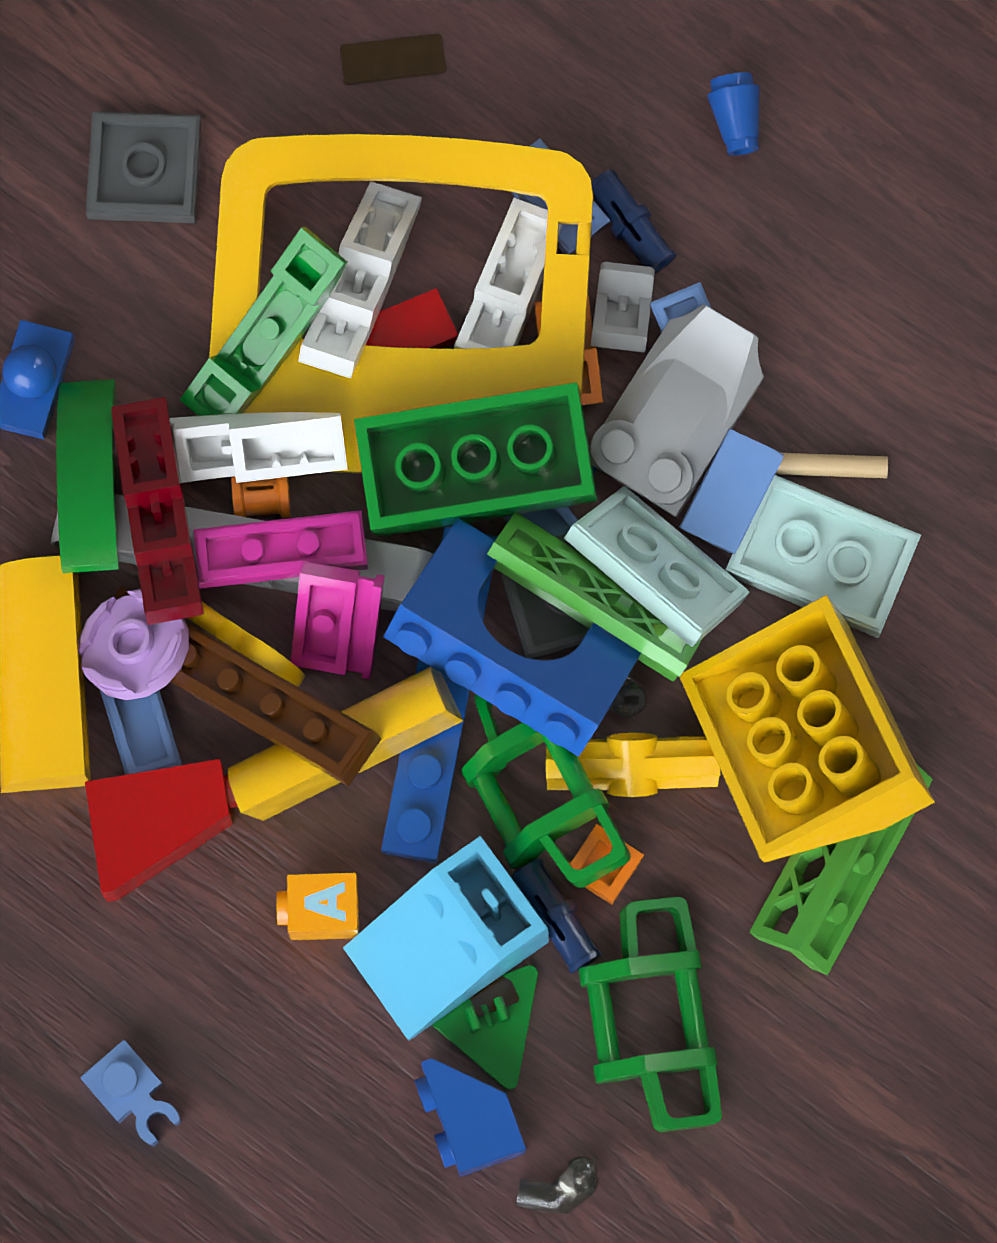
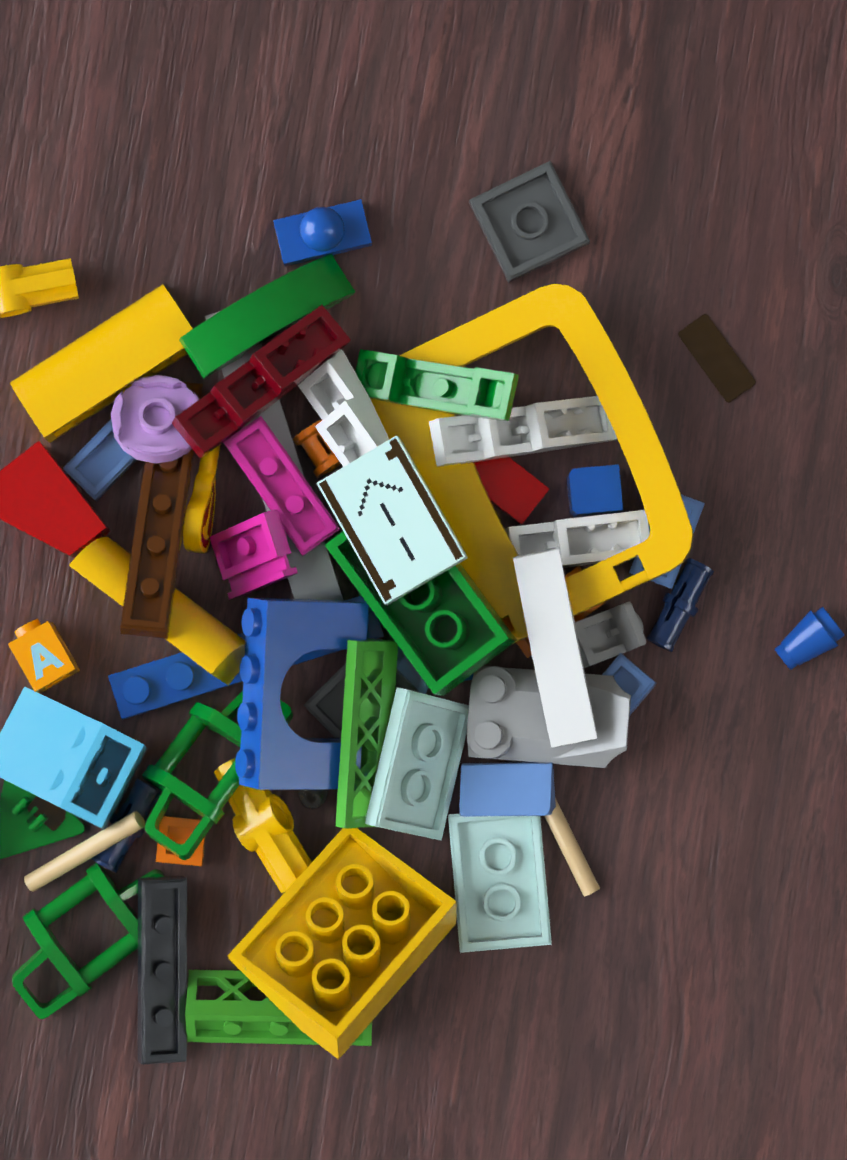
camera: 60 degrees right, 10 degrees up
(384, 439) = (392, 520): none -> light aqua tile
(463, 242) = (594, 491): none -> blue piece
(560, 972) = (84, 851): none -> tan bar
(610, 351) = (555, 647): none -> white slope
(735, 956) = (162, 969): none -> black tile

